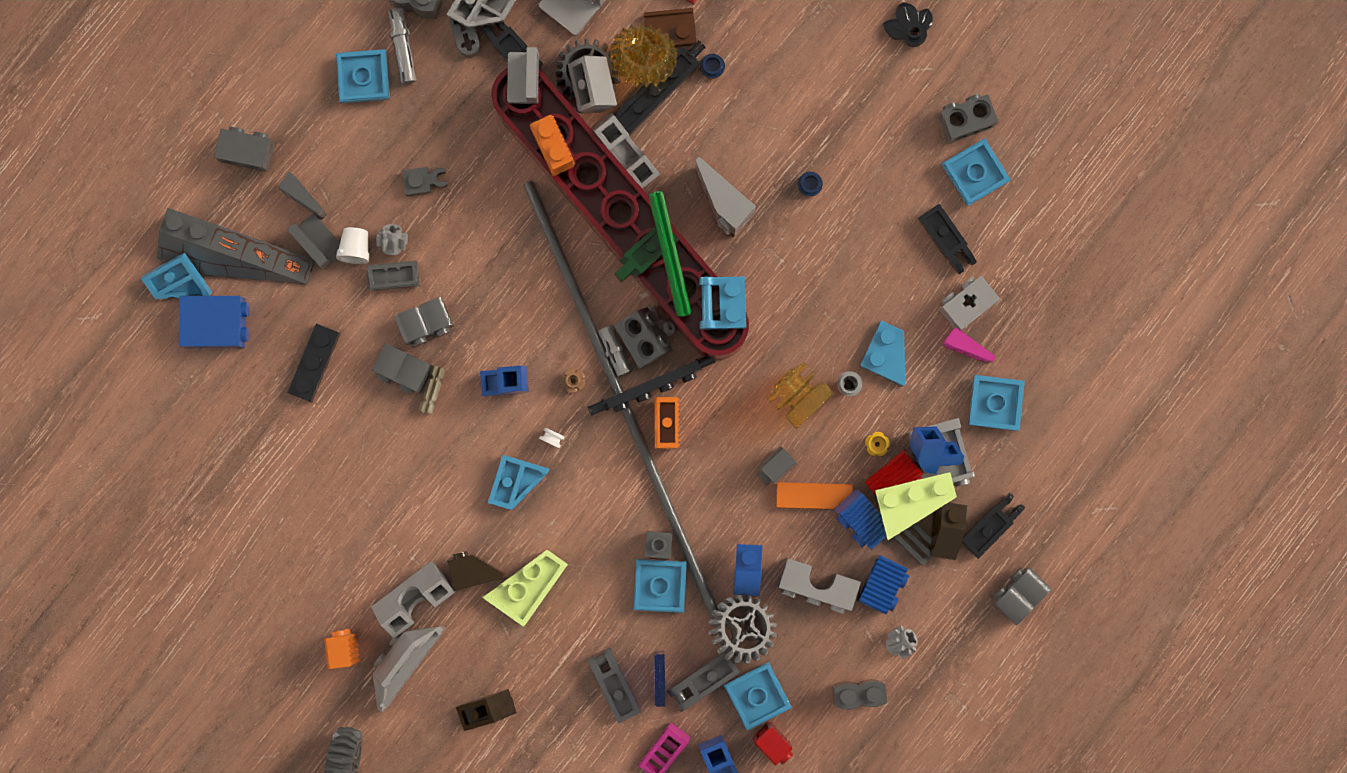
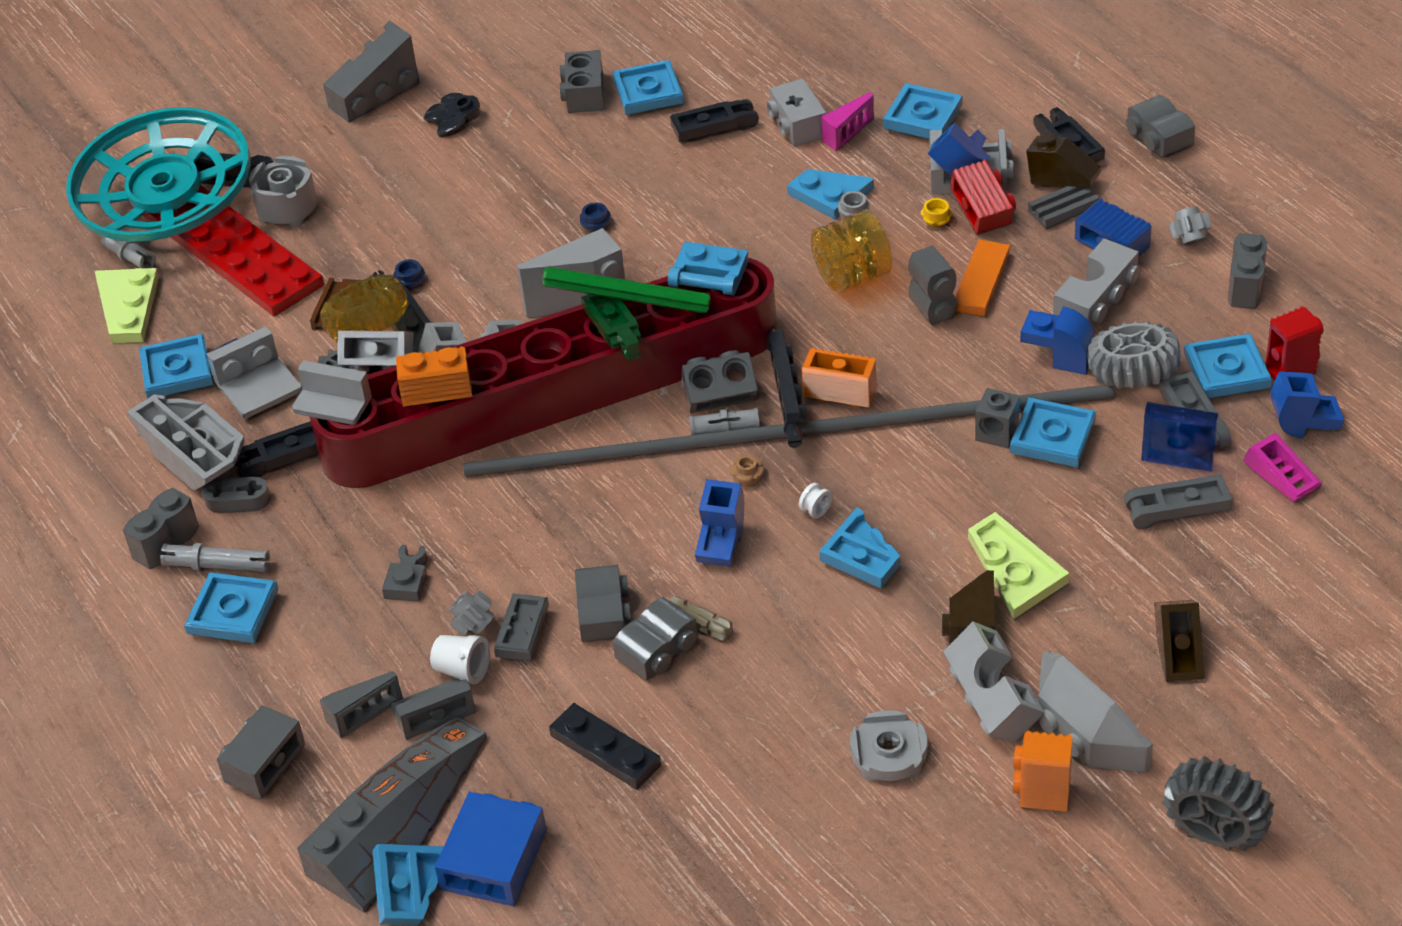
camera: 70 degrees left, 40 degrees down
(362, 531) = (892, 764): none -> light grey plate
(862, 519) = (1025, 228): blue brick -> none
(913, 501) = (1018, 170): yellowish green wing -> none

